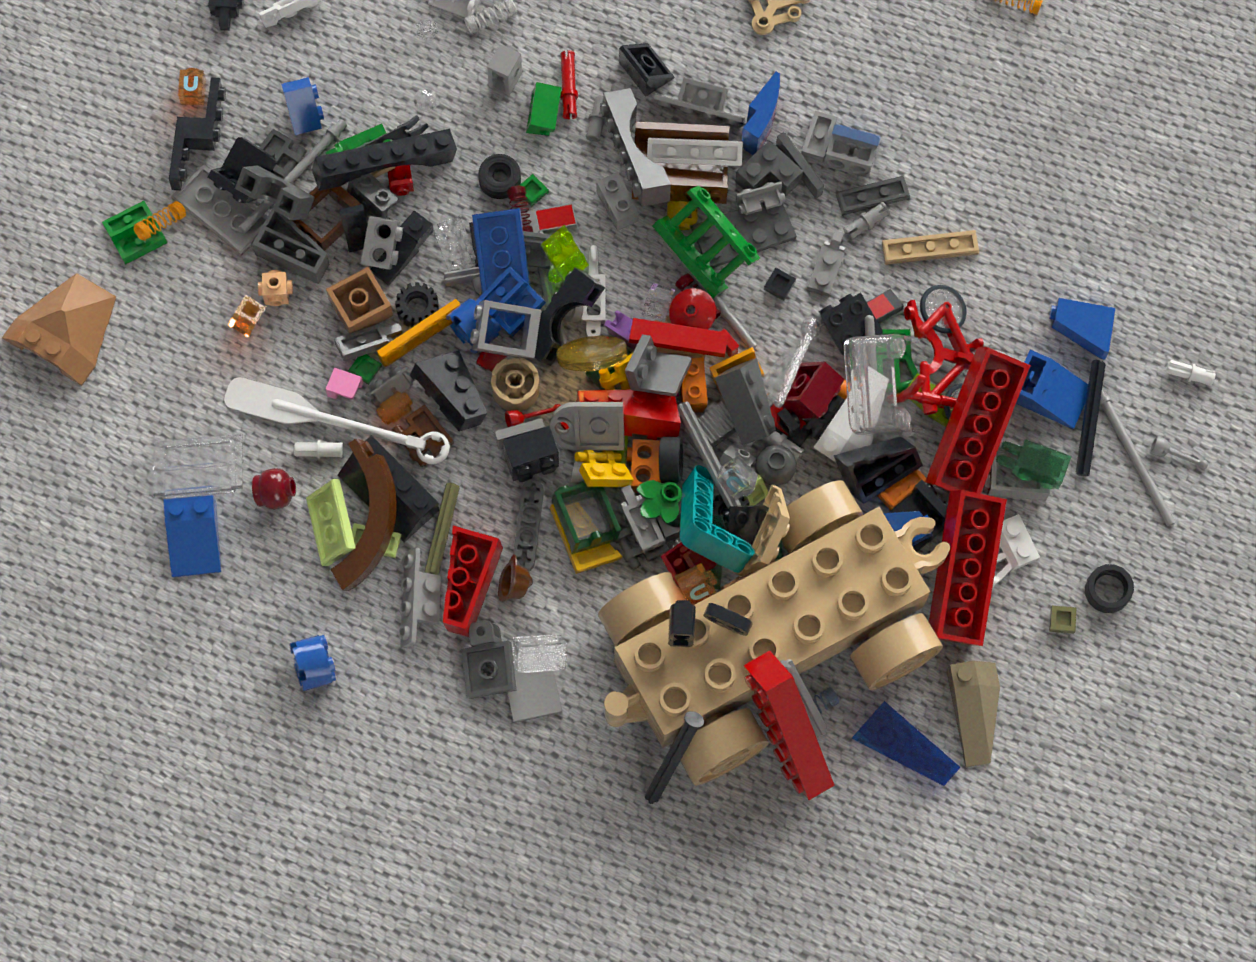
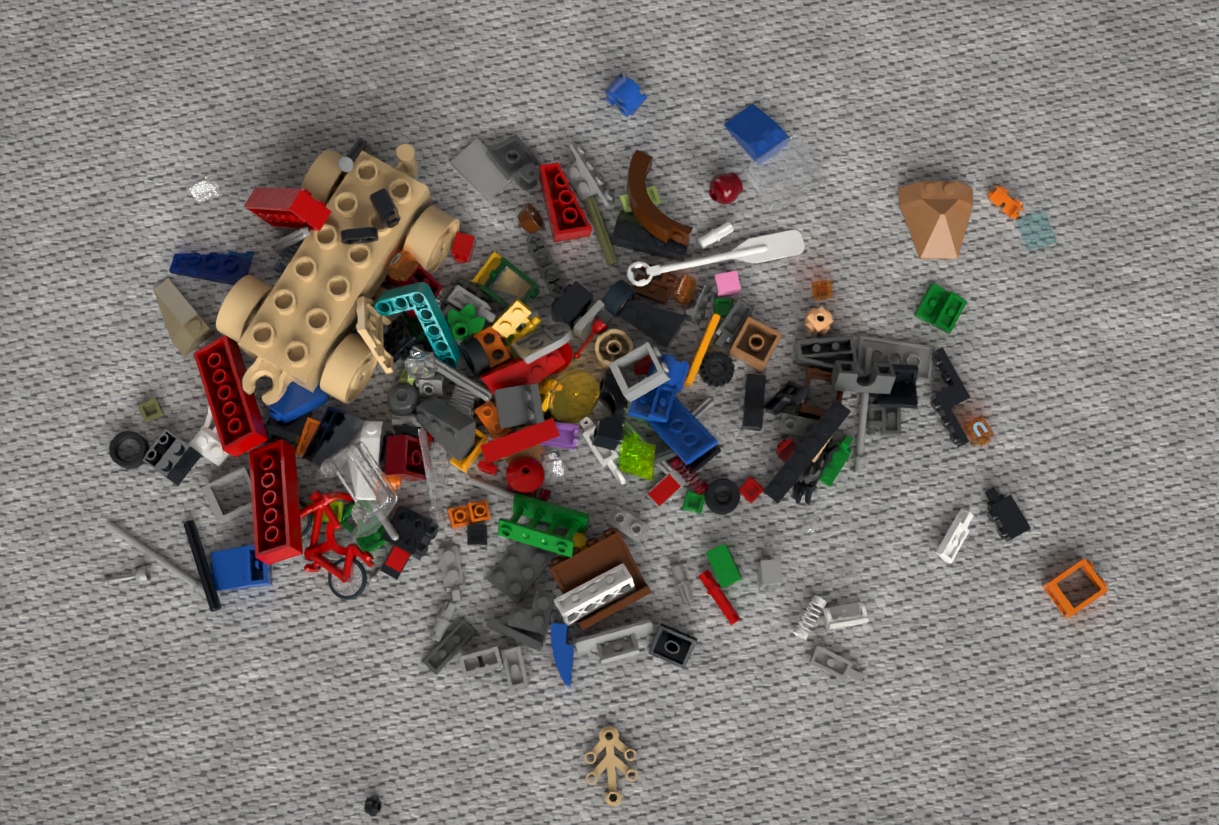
camera: 150 degrees right, 5 degrees up
(144, 232) = (924, 338): light orange piece -> none
(301, 105) = (891, 458): blue brick -> none
(330, 522) = (673, 187): yellowish green tile -> none
(374, 241) = (767, 384): light grey brick -> none
(465, 168) = (751, 490): none -> red tile
(473, 435) = (618, 296): none -> black wheel
(539, 653) = (485, 185): clear hinge -> none
(605, 593) = (463, 247): none -> red brick
(648, 178) = (605, 533): arch -> none
(749, 200) = (521, 593): light grey hinge -> none
(773, 311) = (469, 514): none -> orange slope
(856, 134) = (485, 680): medium blue tile -> none
(868, 846) = (204, 189): none -> clear bracket
(930, 247) = (386, 631): tan tile -> none
(1036, 91) = (372, 805): none -> black plate
(1036, 463) = (219, 498): clear green hinge -> none
(1066, 551) = (171, 457): none -> black slope
(1084, 324) = (241, 635): blue slope -> none
(1191, 372) = (146, 645): white axle -> none

